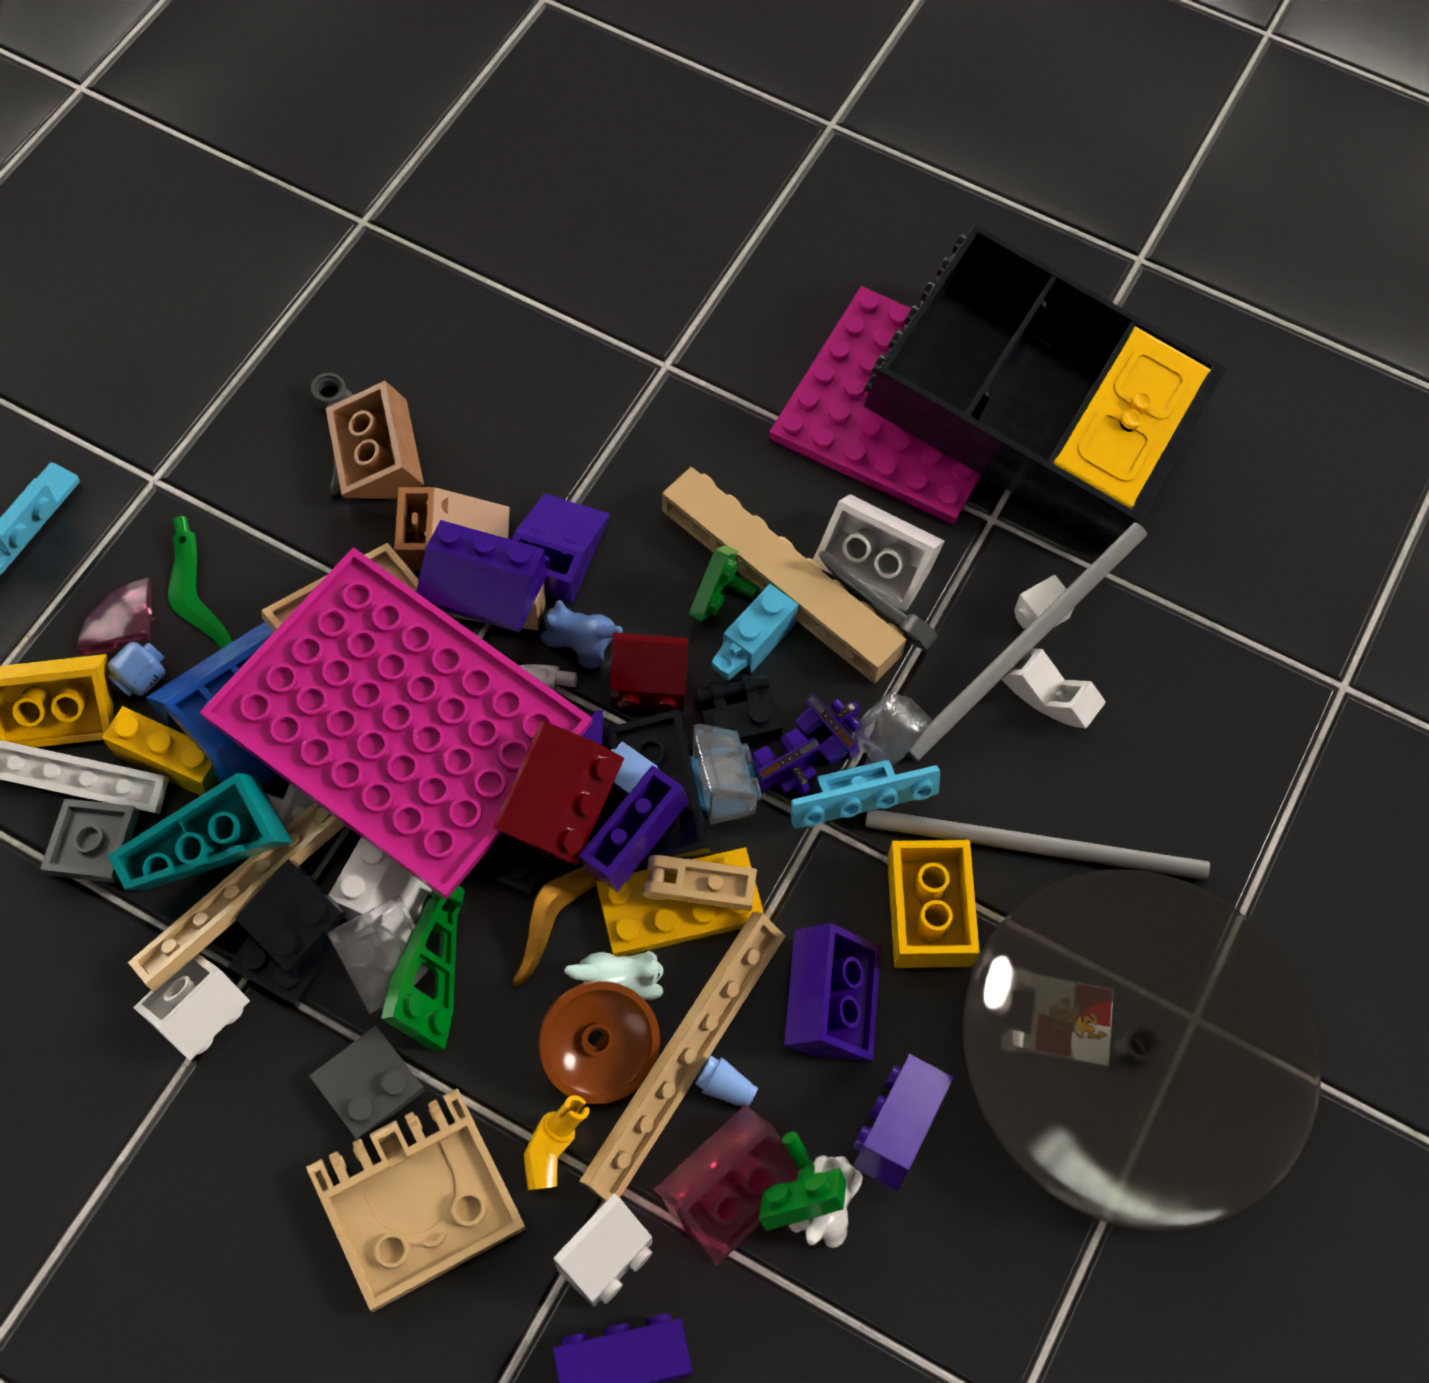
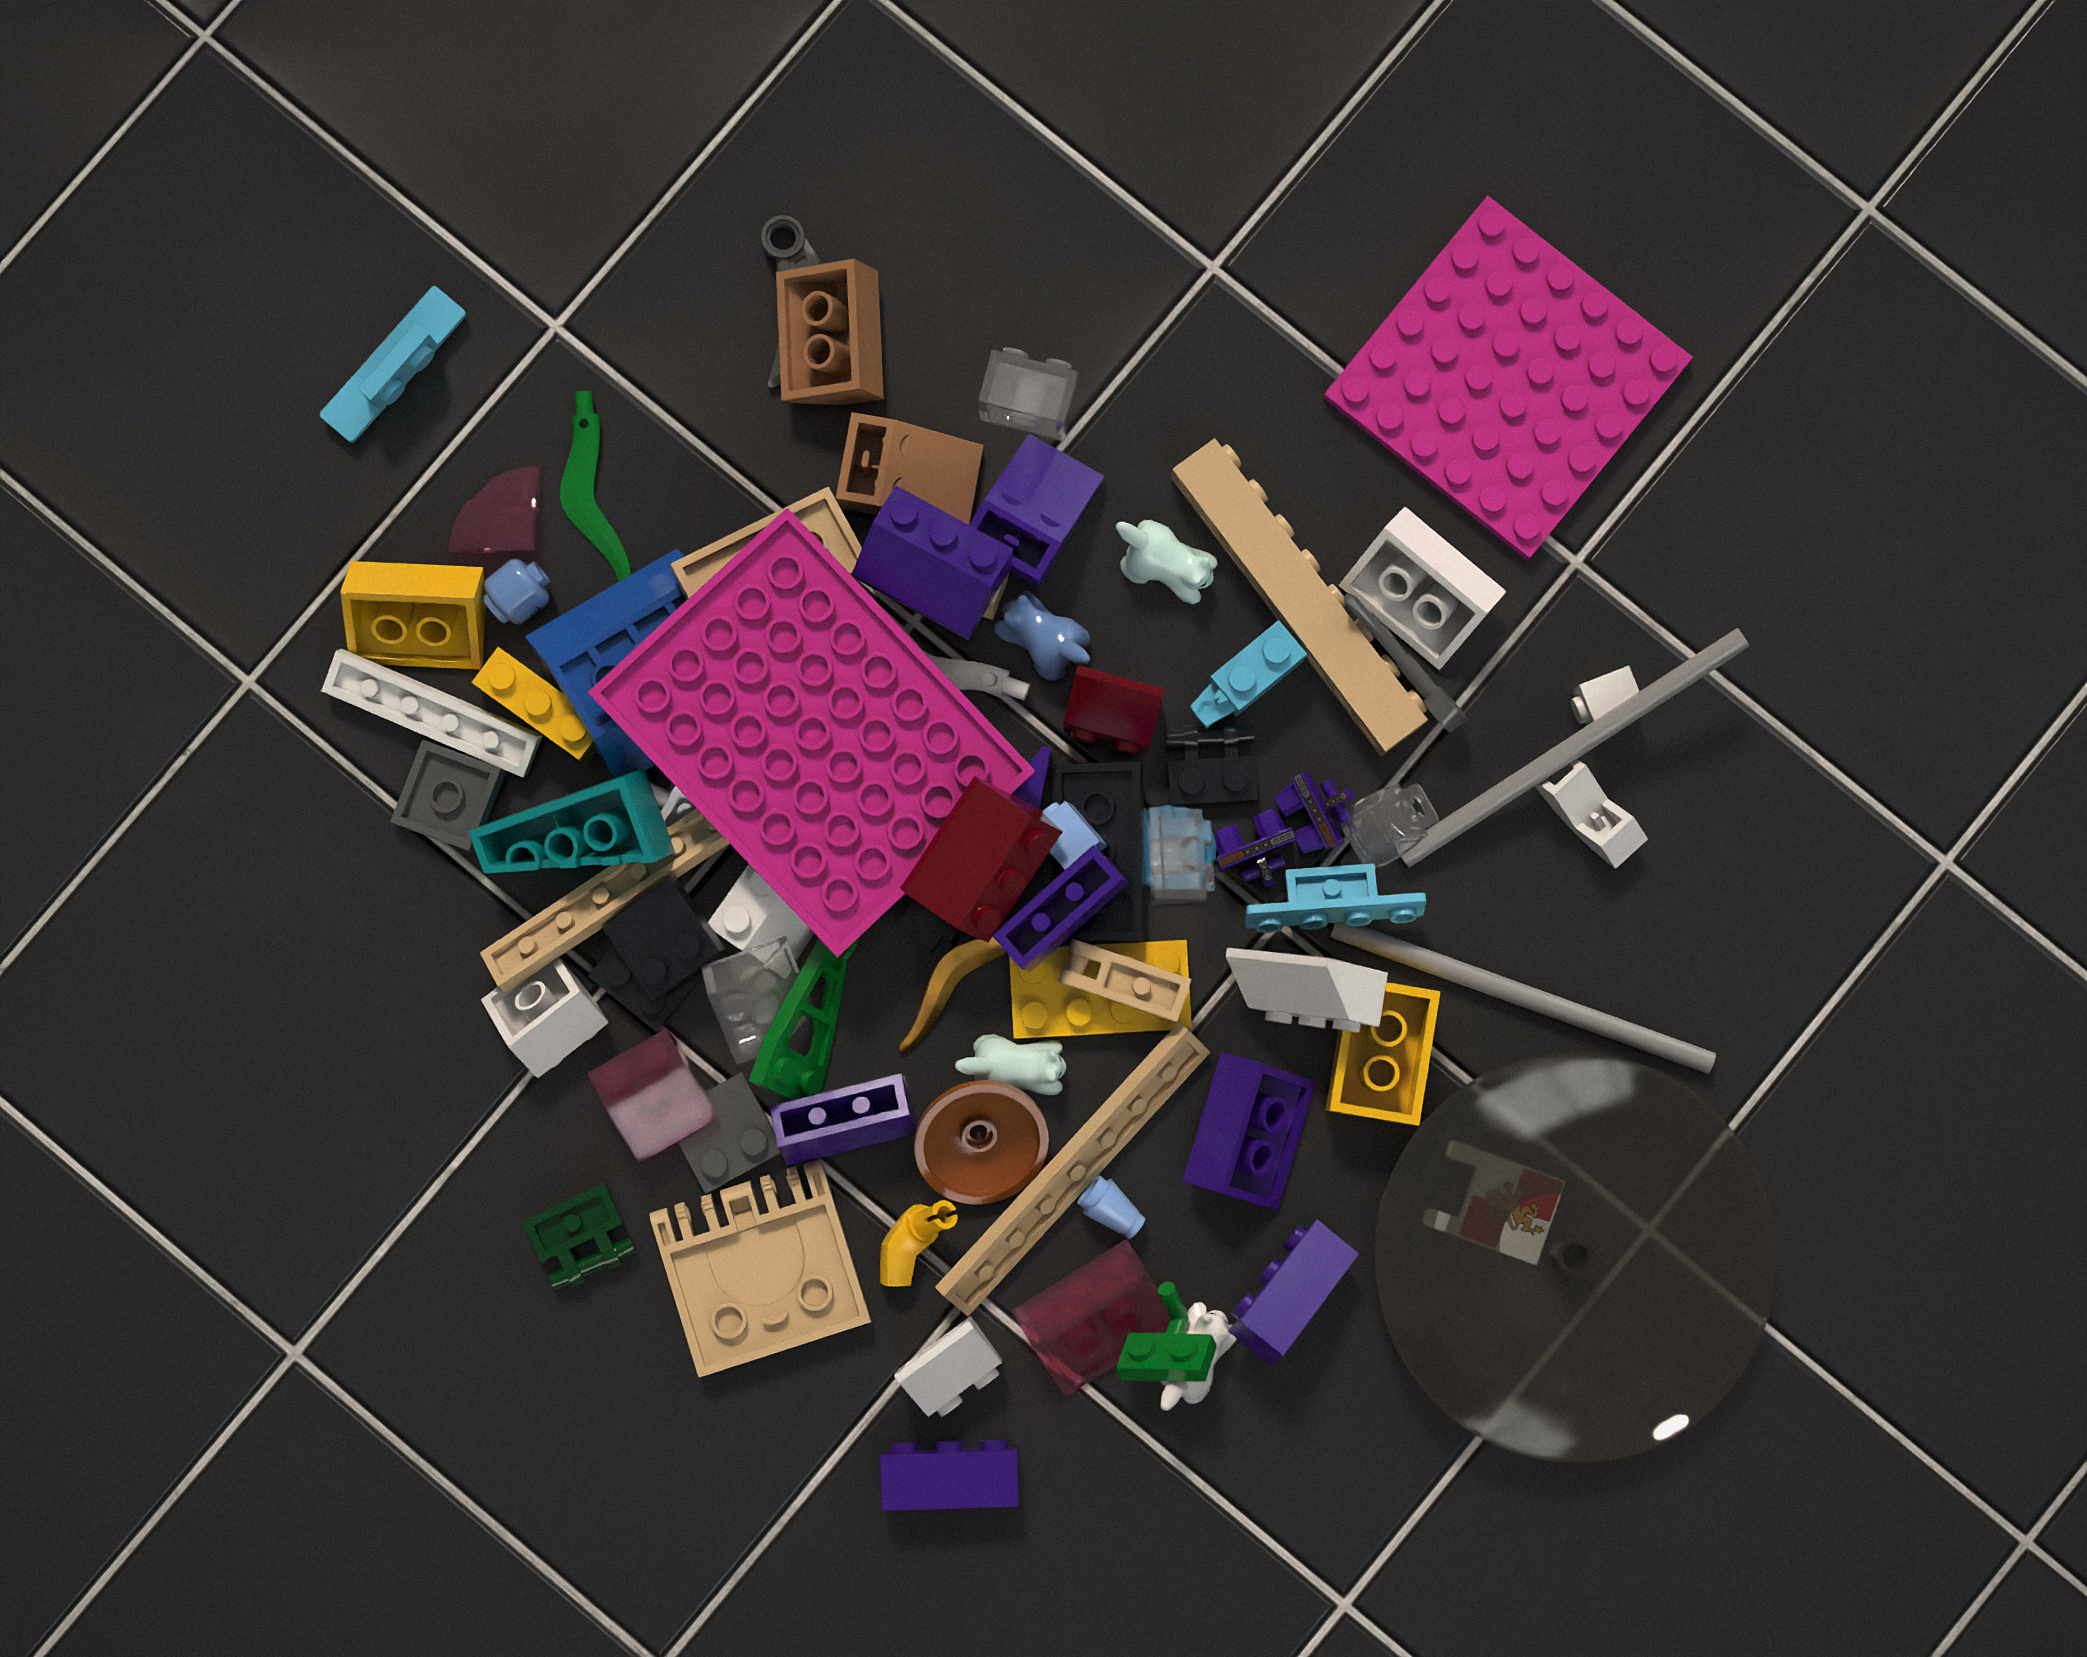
camera: 15 degrees right, 20 degrees up
(236, 1189) = (574, 1223): none -> dark green plate
(296, 1055) = (653, 1095): none -> clear pink slope
(472, 1046) = (843, 1119): none -> dark purple brick
(538, 458) = (1028, 393): none -> clear brick
(664, 561) = (1159, 556): none -> light aqua animal
(719, 574) = (1223, 593): green plate -> none
(857, 851) = (1309, 989): none -> white slope
(1043, 386) = (1681, 406): black container -> none

